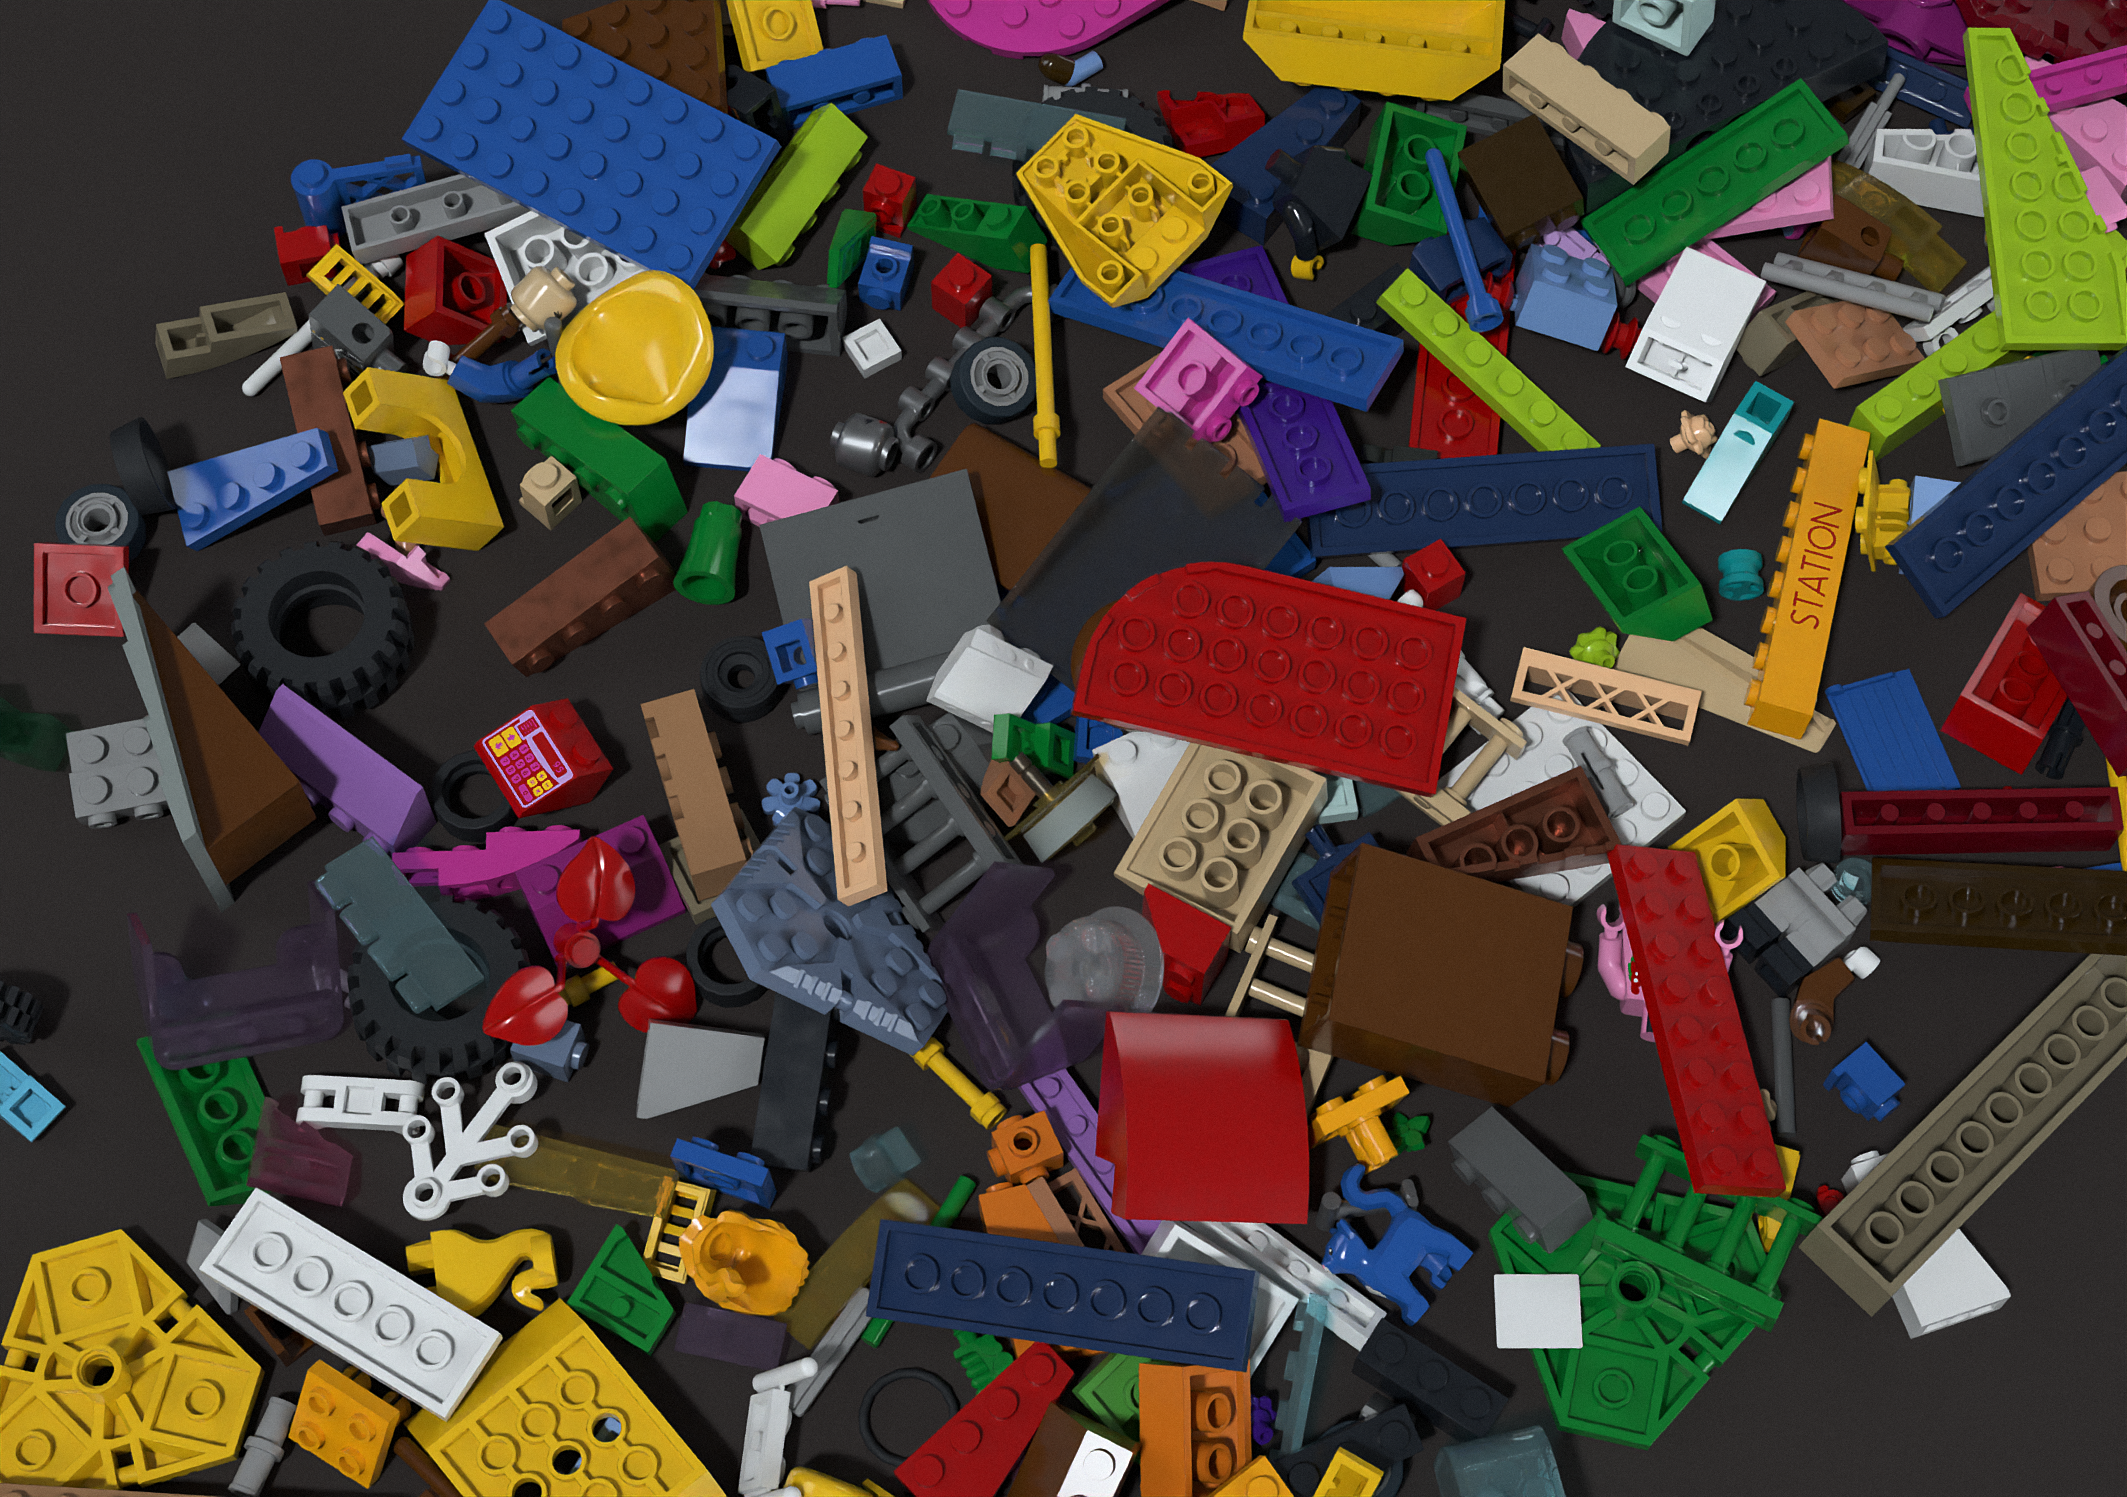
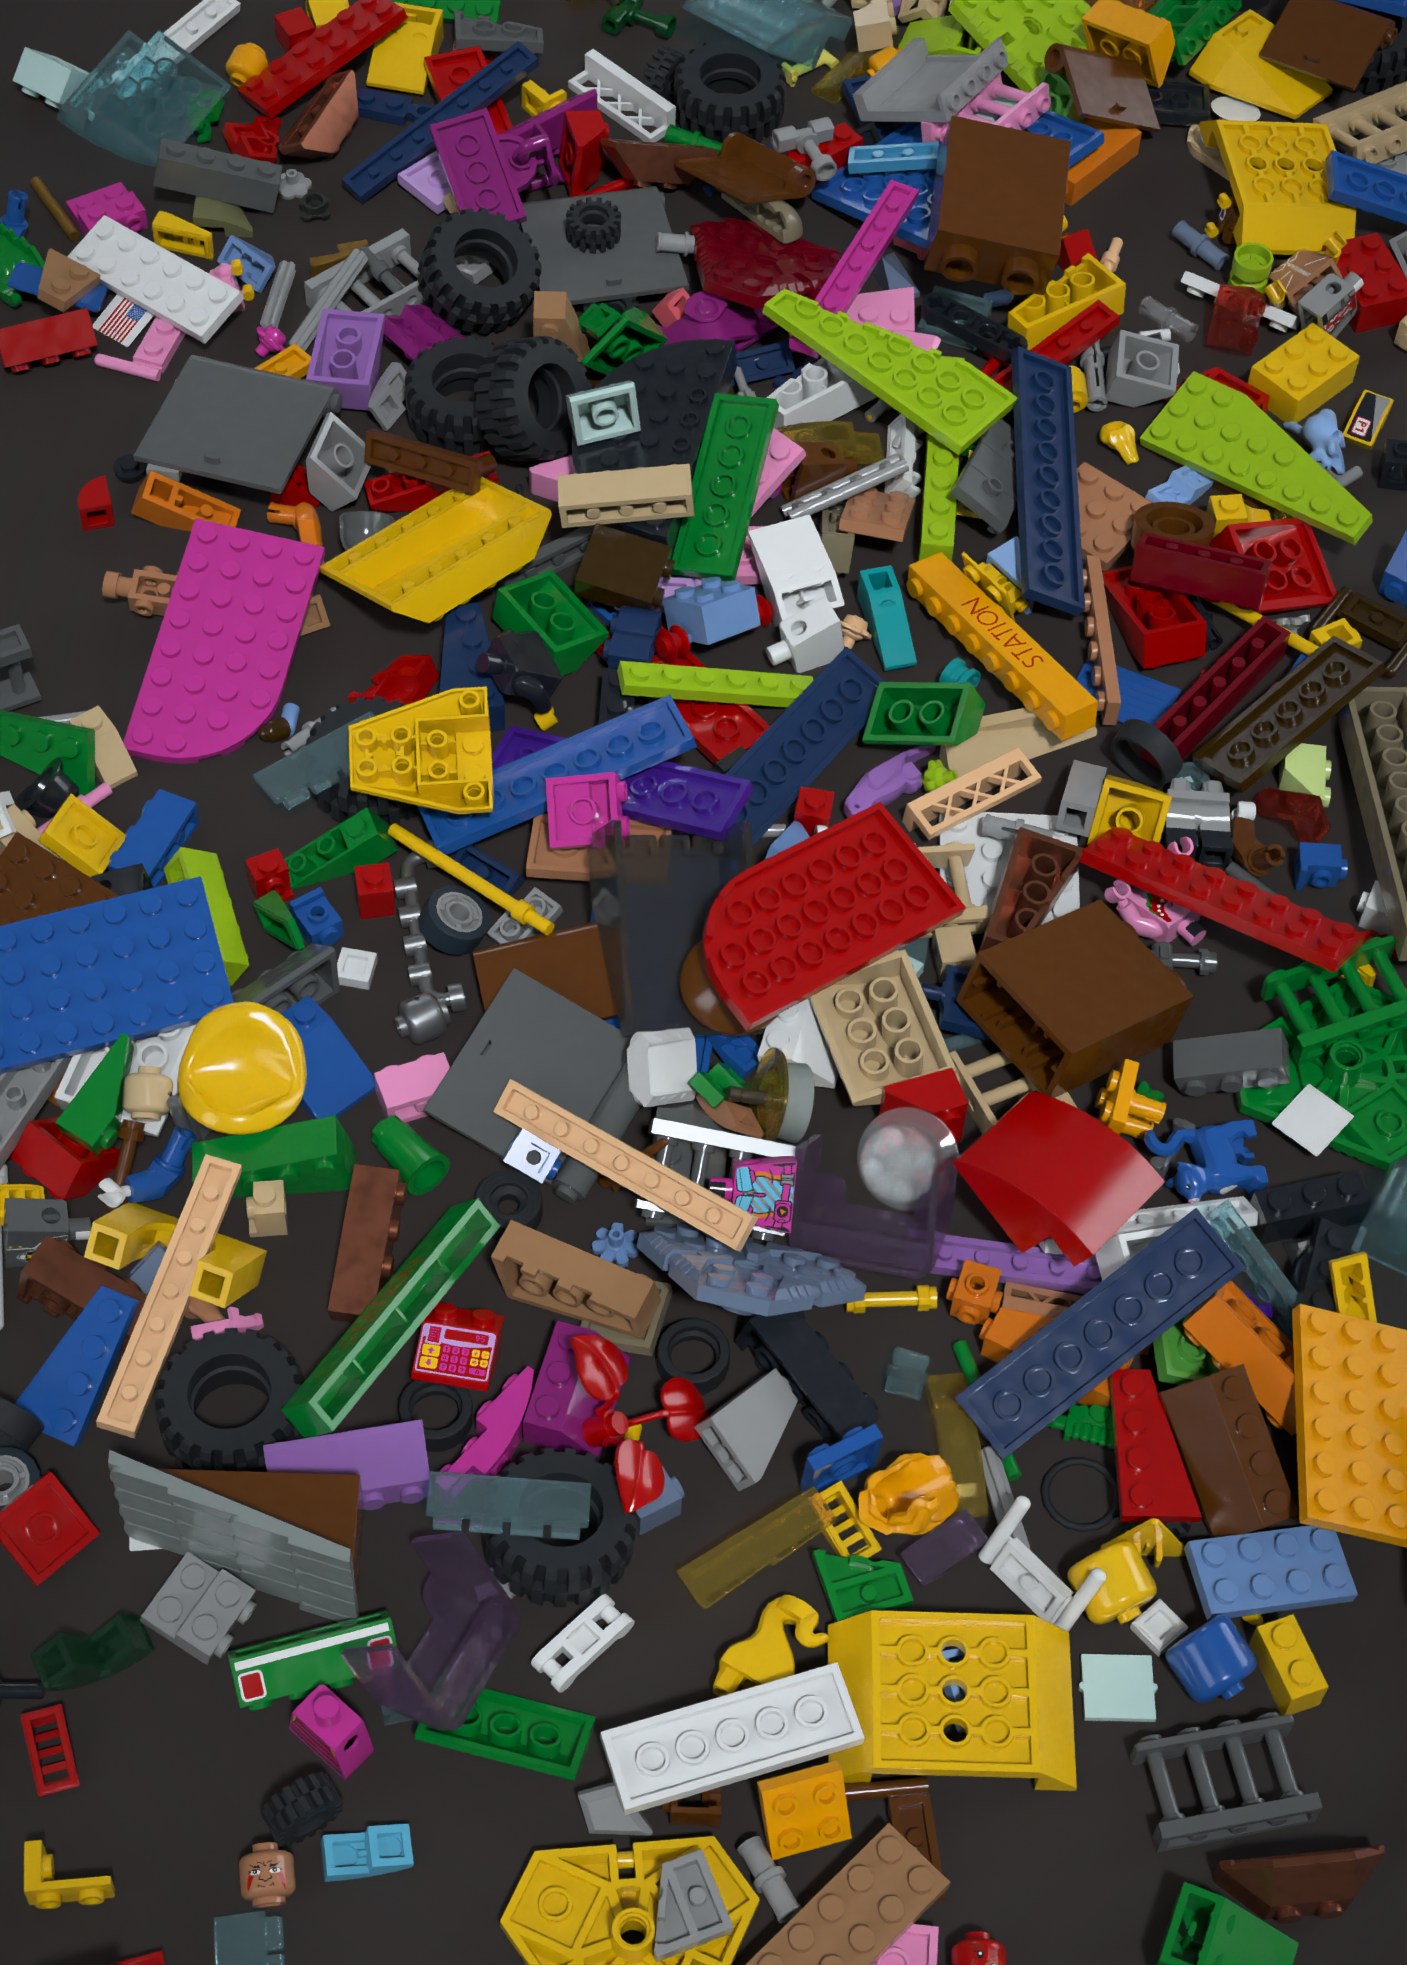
camera: 50 degrees left, 10 degrees down
(93, 962) = (327, 1726): none -> dark pink torso
(118, 882) = (304, 1660): none -> green brick
(165, 1399) = (688, 1907): none -> light grey wing
(297, 1159) = (588, 1705): clear pink wing -> none
(364, 489) = (168, 1297): none -> light nougat plate
(467, 1145) = (678, 1598): white plant -> none
(486, 274) = (97, 1108): none -> green slope
(513, 678) = (390, 1319): none -> green brick
(929, 871) = (761, 1188): none -> torso
(1079, 441) = (509, 929): none -> light grey slope
(1083, 364) = (490, 869): none -> dark blue slope
(1401, 823) = (953, 947): none -> tan brick
(1482, 310) = (684, 648): blue piece -> none
(1532, 611) = (888, 781): none -> medium lavender animal
(1596, 1024) = (1204, 961): none -> dark grey bar
(1634, 405) = (808, 638): none -> white torso
(1692, 796) = (1080, 798): none -> light grey brick
(1912, 1009) = (1303, 809): none -> clear red bracket
(1939, 650) = (1101, 646): none -> nougat plate
(1968, 984) = (1306, 771): none -> yellowish green slope

